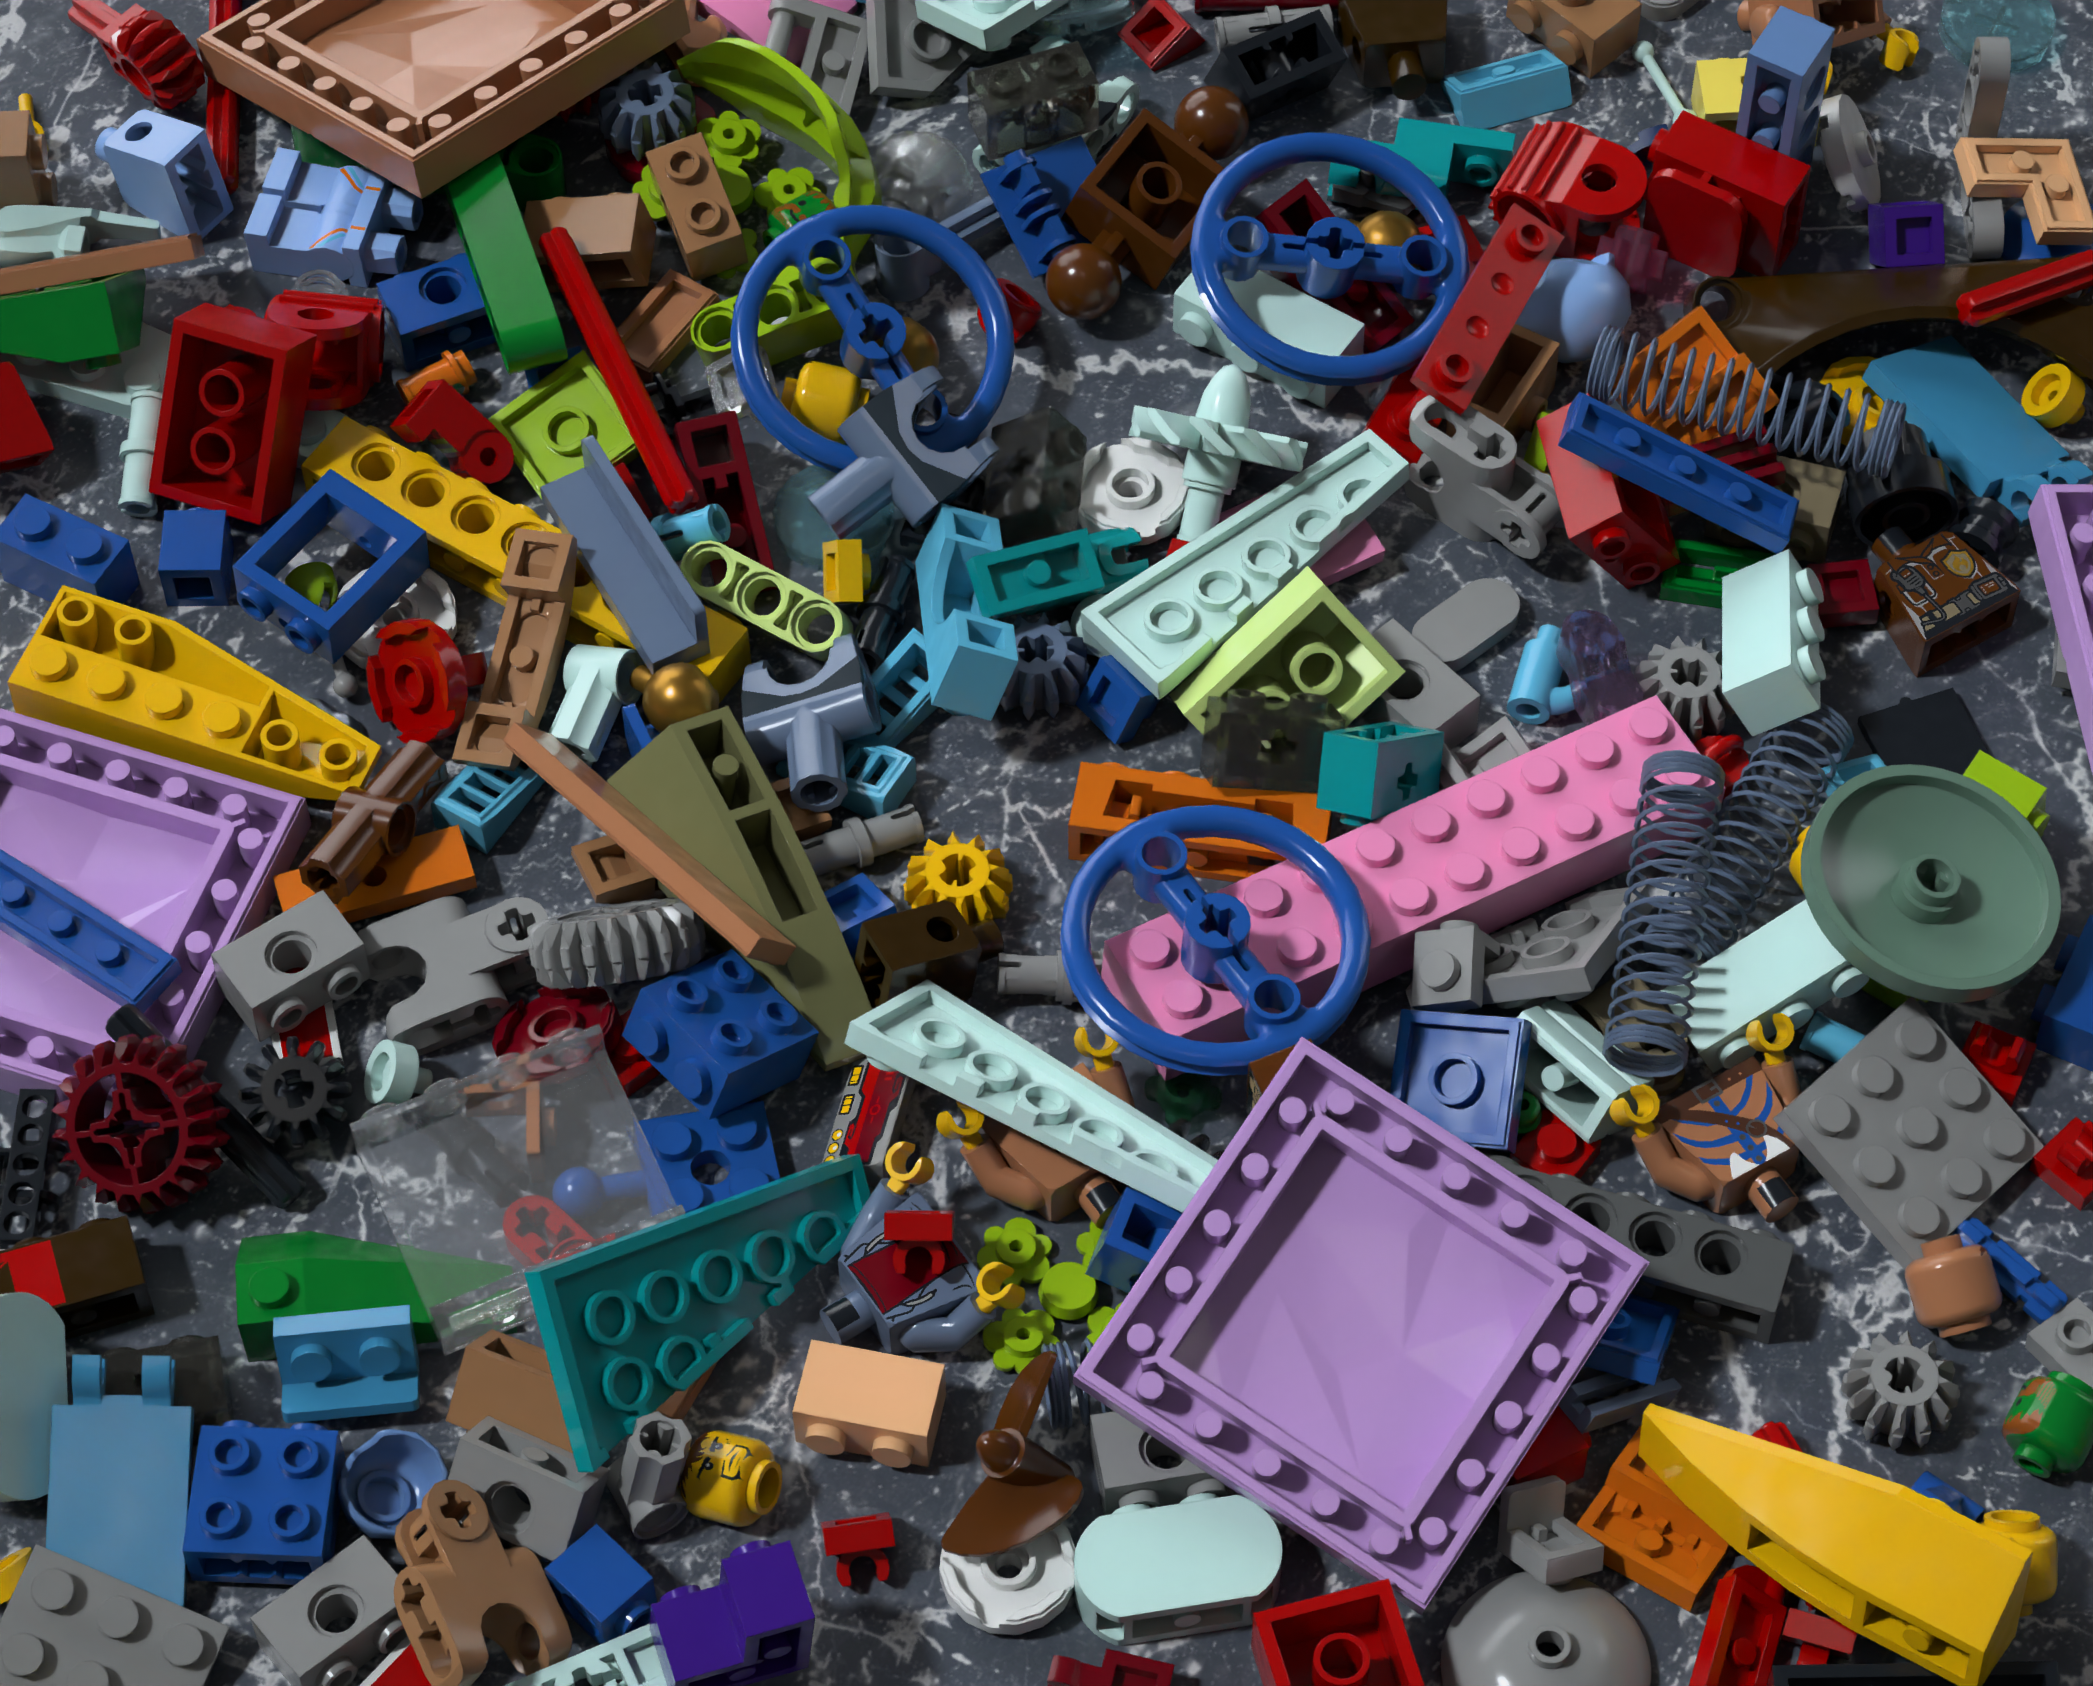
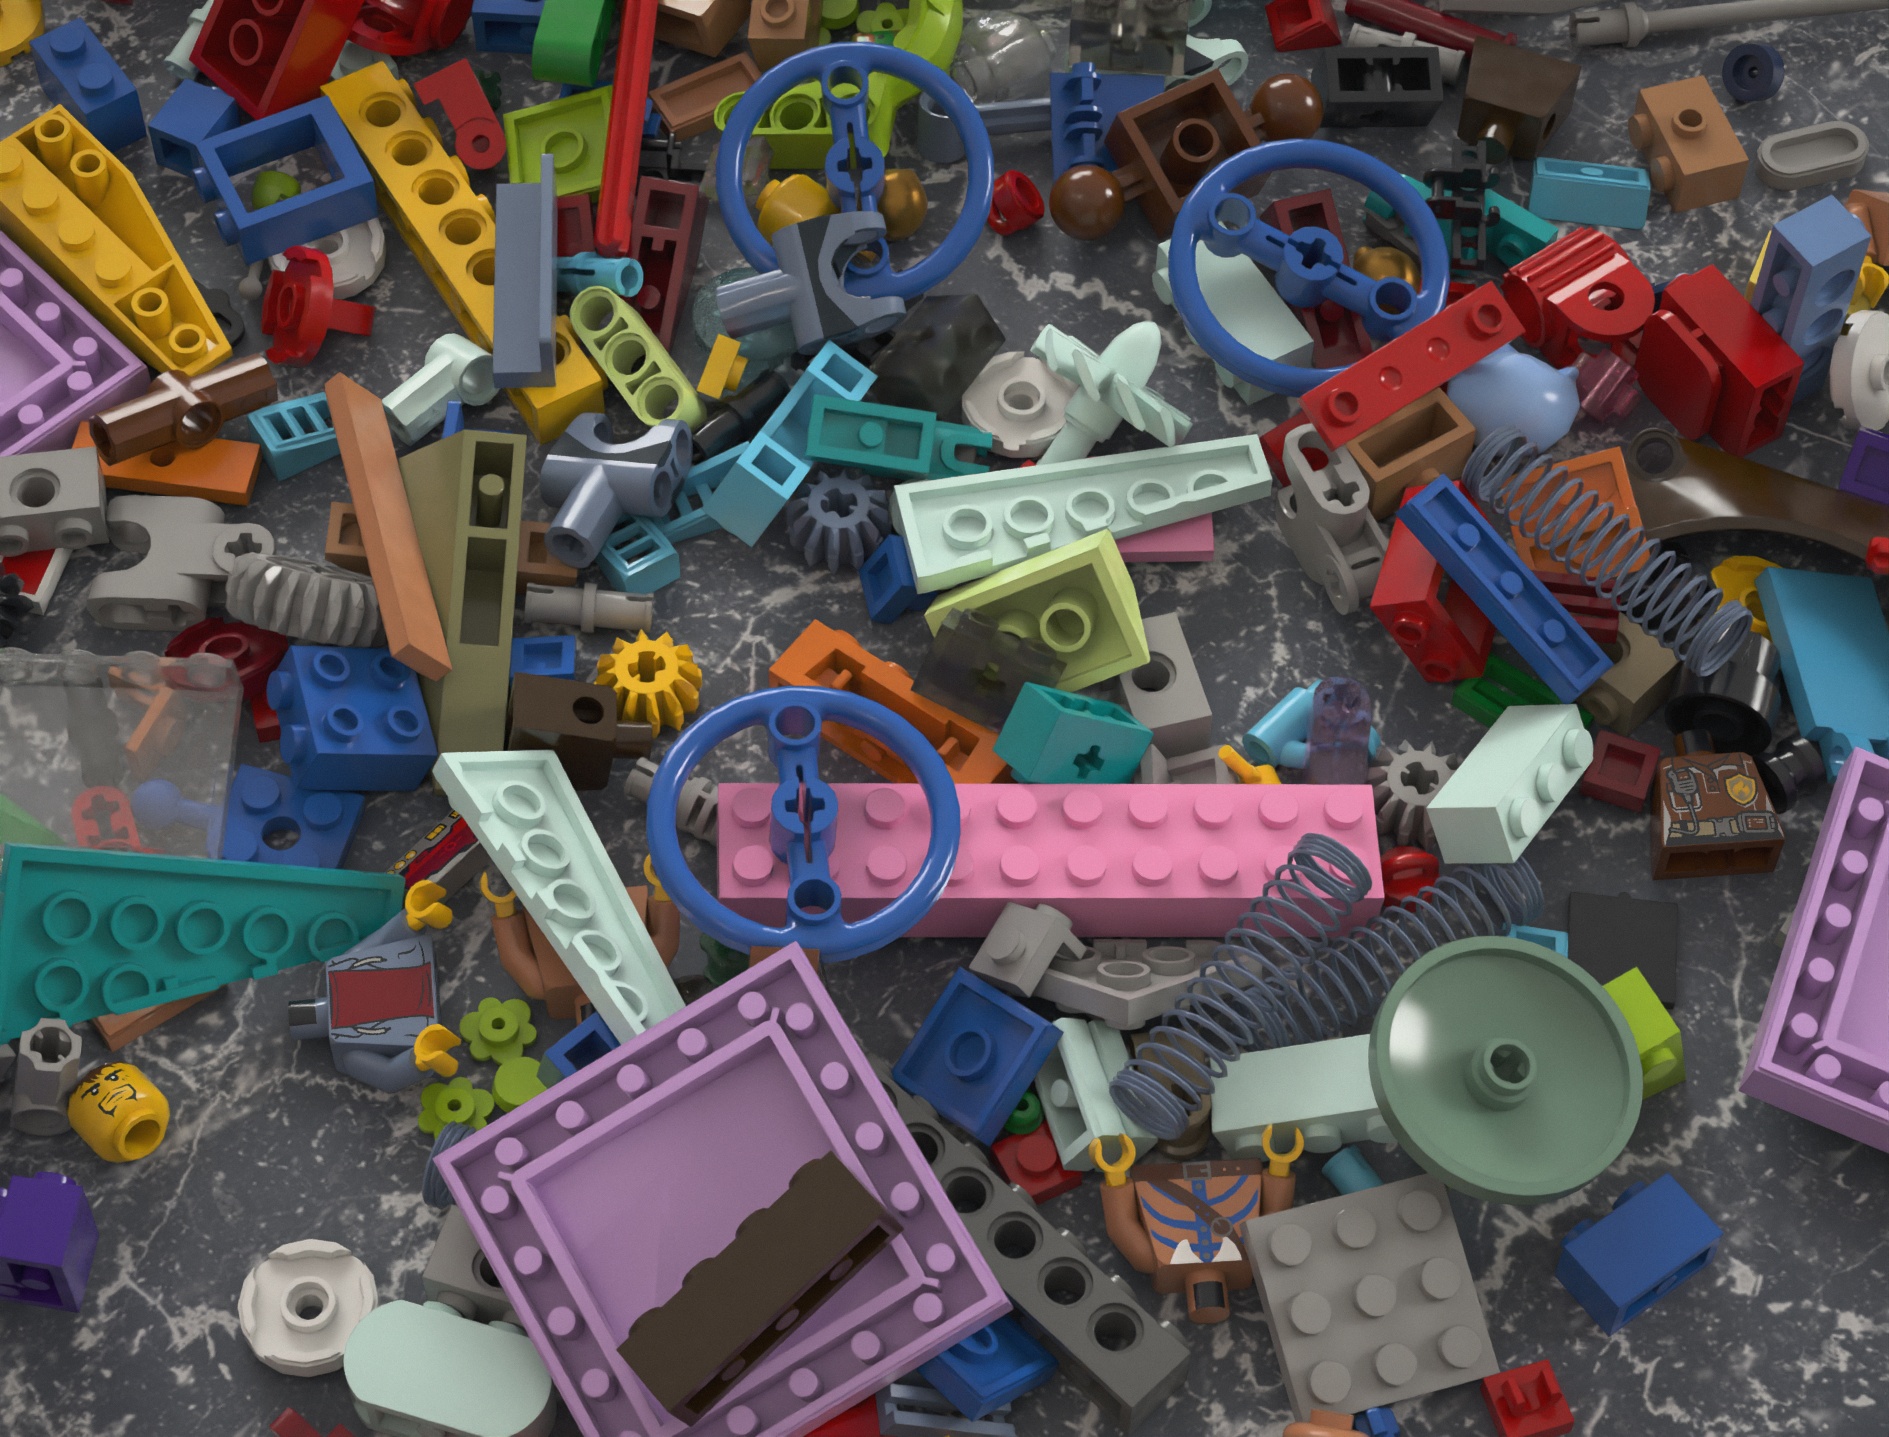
camera: 25 degrees right, 0 degrees up
(394, 1073) = (74, 631): light aqua tile -> none
(452, 367) = (506, 61): orange pin -> none
(526, 649) = (410, 318): medium nougat slope -> none
(674, 693) = (503, 408): pearl gold piece -> none
(857, 1538) = (196, 1218): red tile -> none
(869, 1404) = (279, 1105): light nougat brick -> none
(919, 1229) = (400, 966): red tile -> none
(1025, 1484) = (355, 1242): reddish brown piece -> none
(1417, 145) = (1457, 208): none -> black piece
(1438, 1347) = (758, 1288): none -> dark brown brick
(1469, 622) = (1252, 650): light grey tile -> none
(1536, 734) = (1248, 773): none -> yellow hand
(1643, 53) = (1736, 208): light aqua hinge -> none
(1999, 1058) = (1505, 1272): red tile -> none

